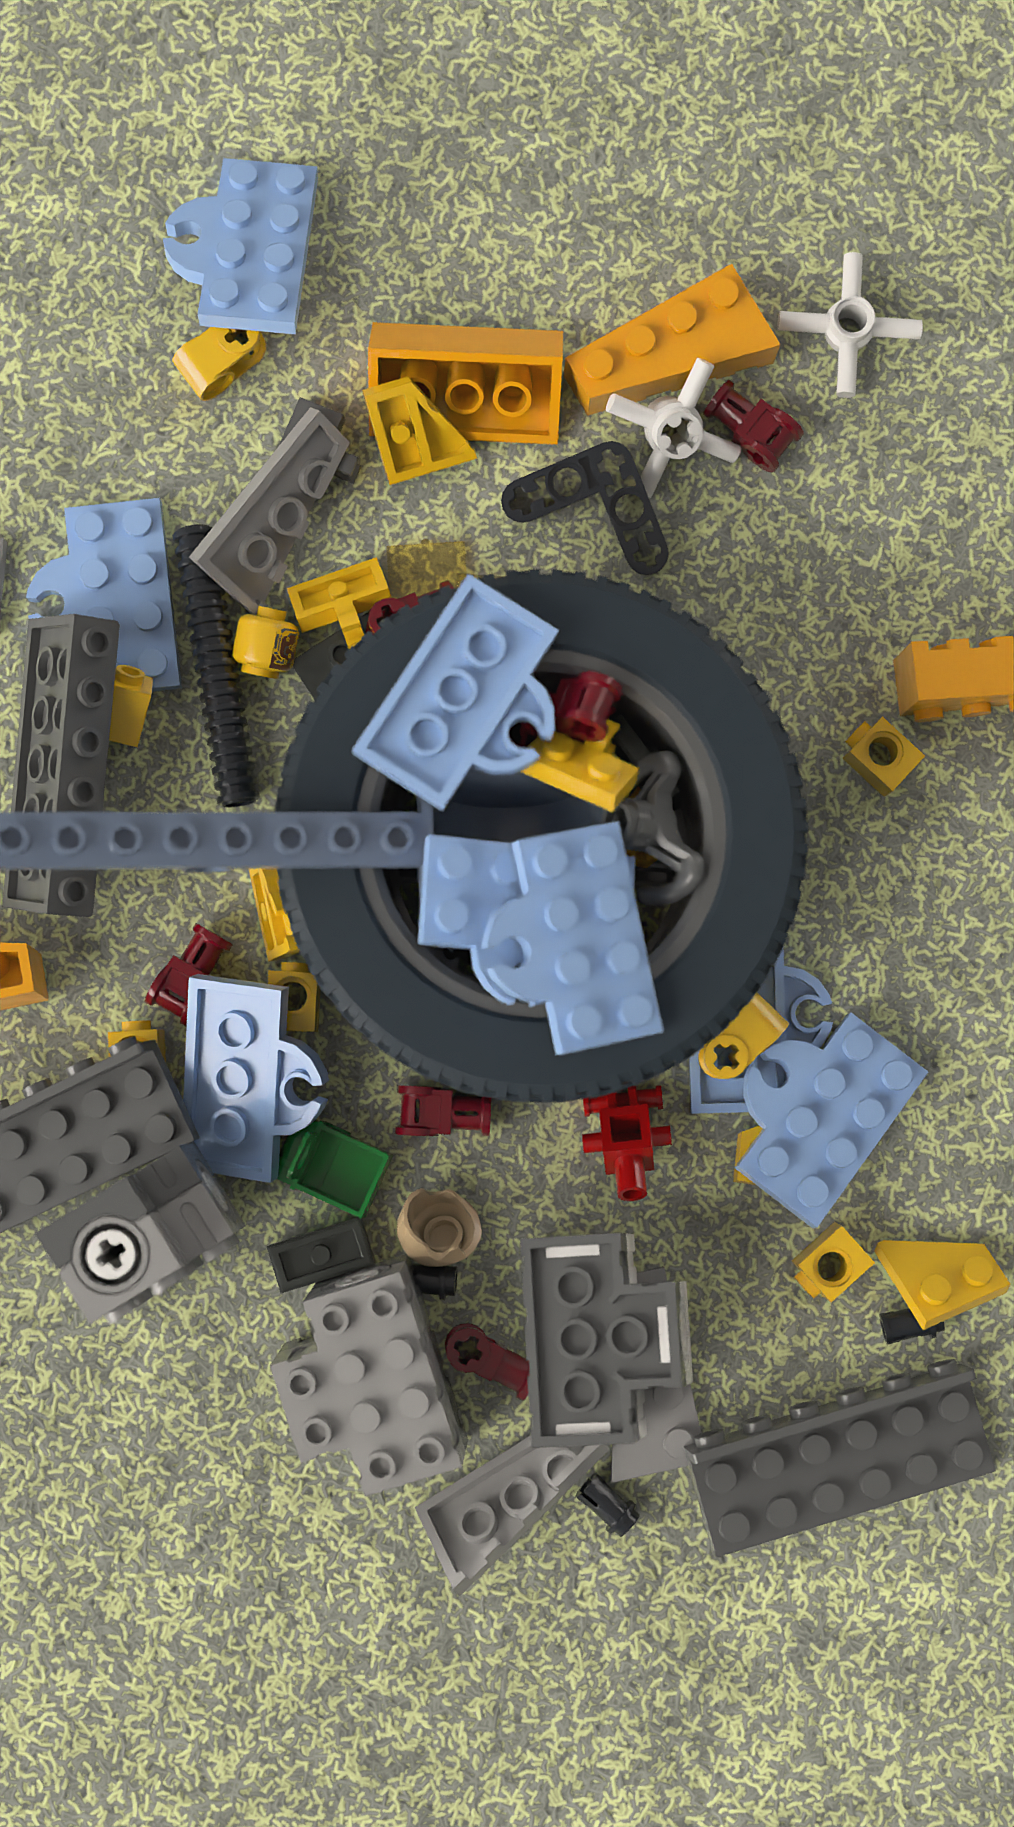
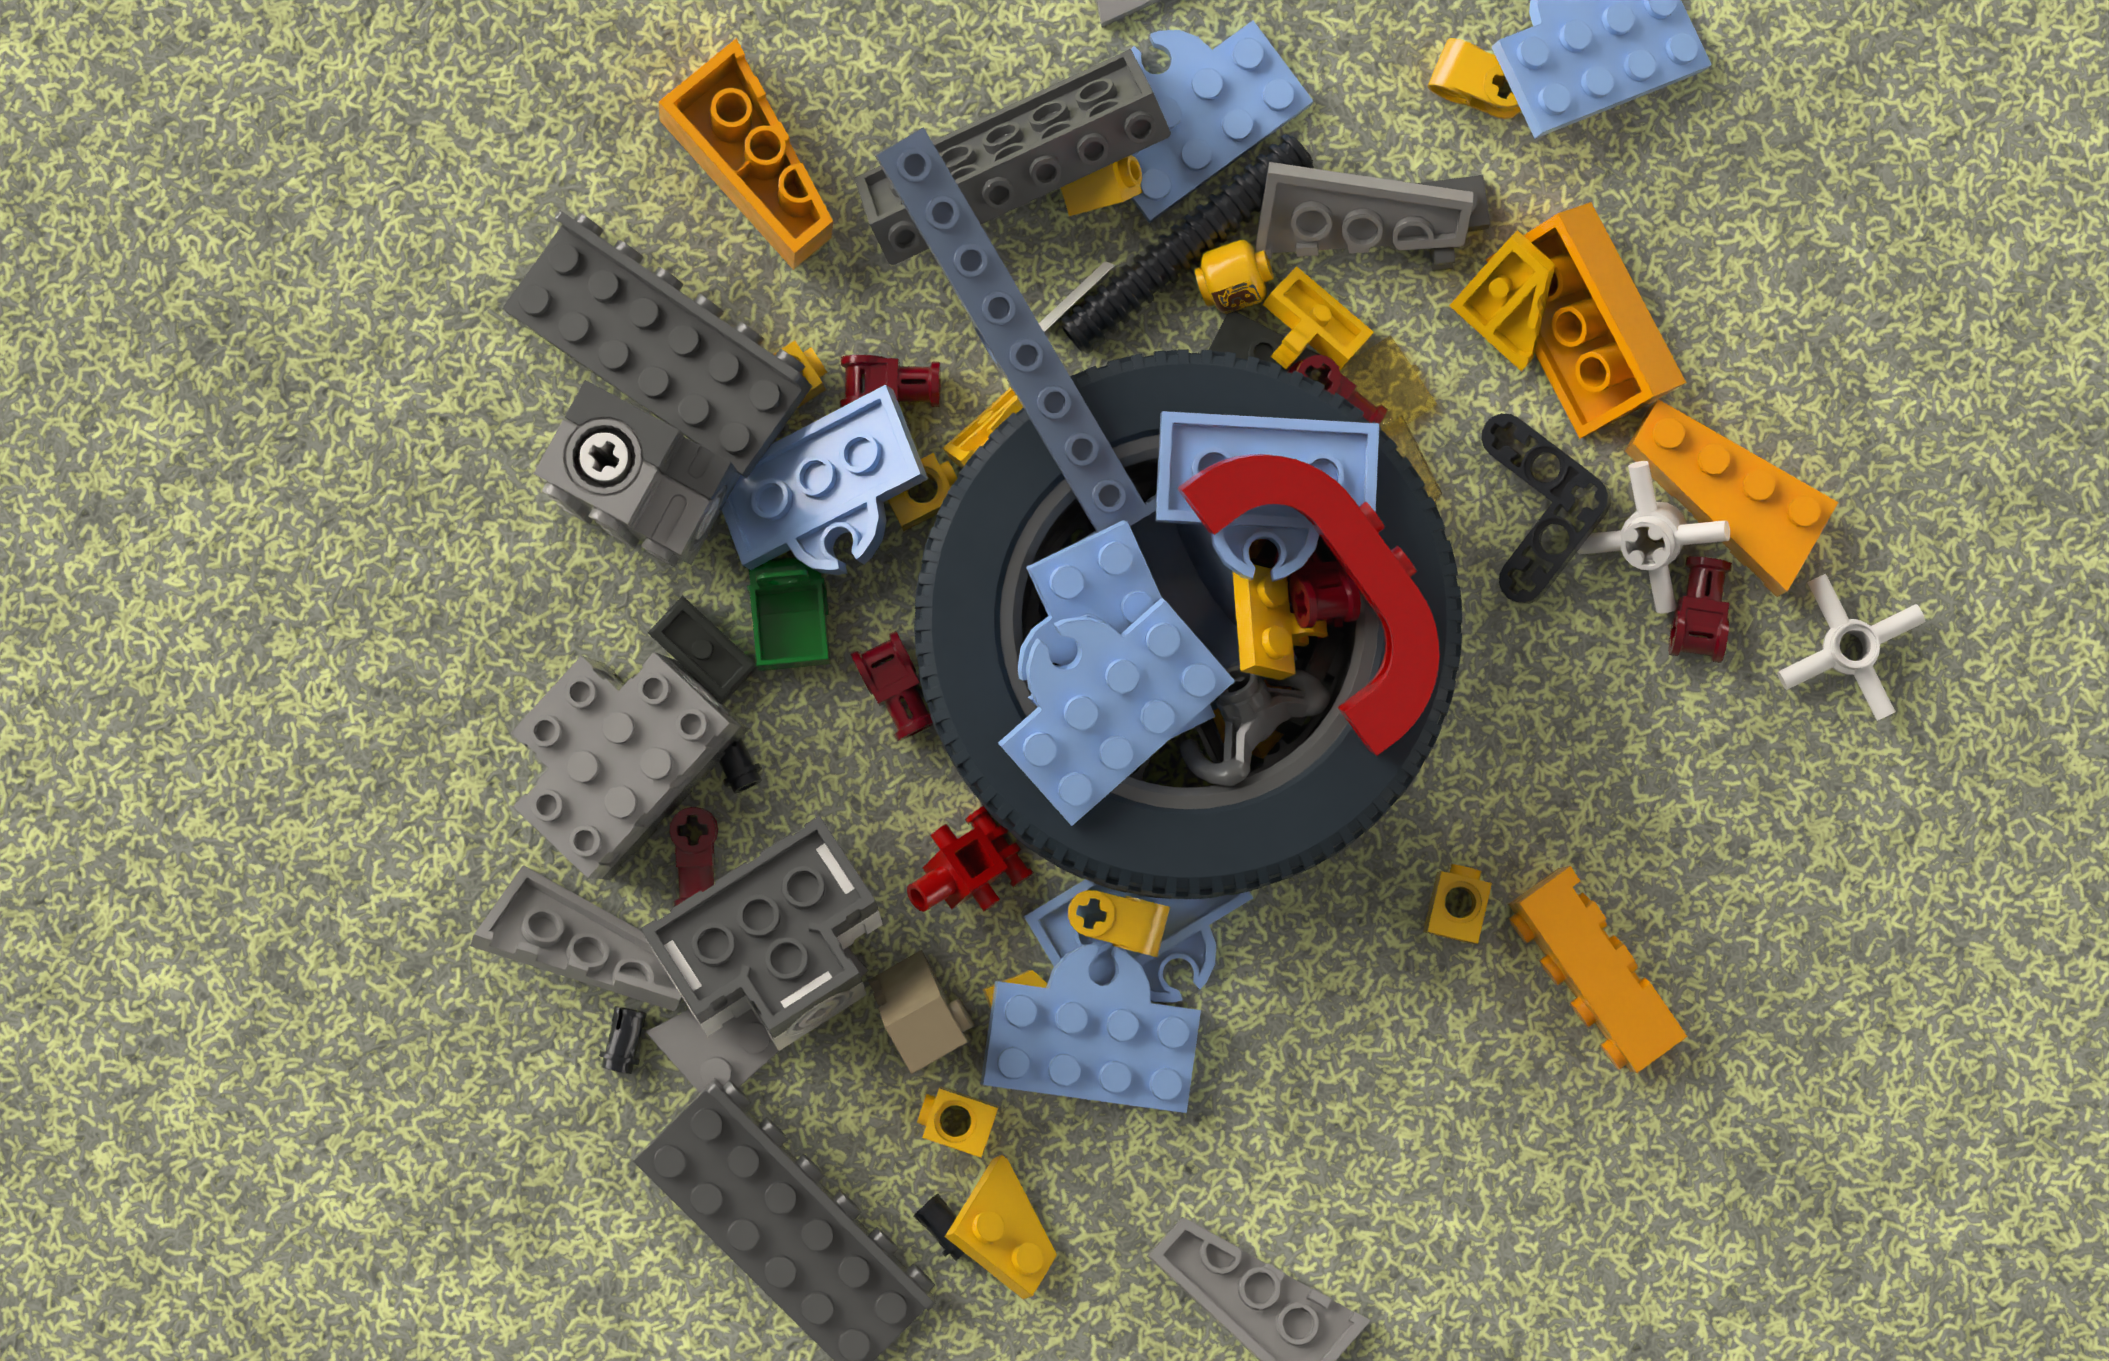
camera: 70 degrees right, 0 degrees up
(204, 774) = (1075, 295): none -> white sticker
(438, 1227) = (787, 741): tan hair -> none
(691, 665) = (1411, 658): none -> red arch
(733, 1247) = (919, 1012): none -> dark tan wedge

